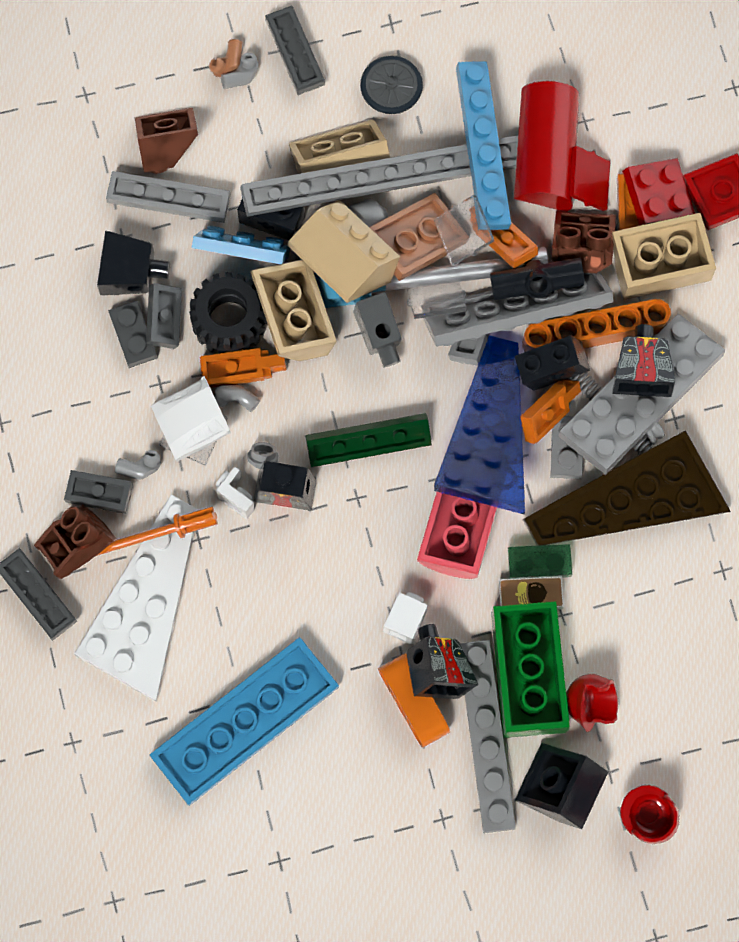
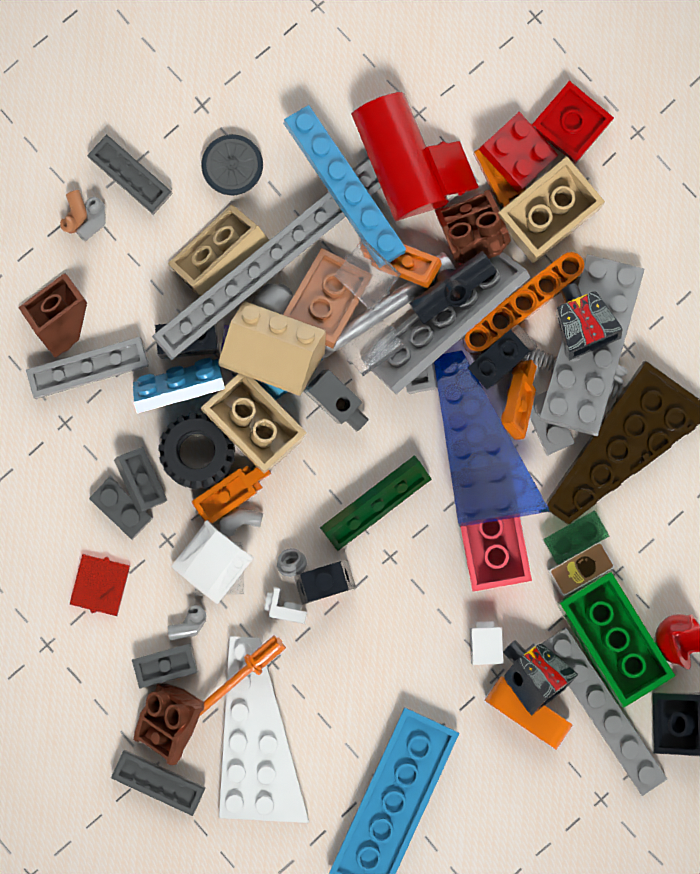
camera: 25 degrees left, 10 degrees up
(77, 393) = (100, 585): none -> clear red piece
(128, 265) = (85, 449): black torso -> none

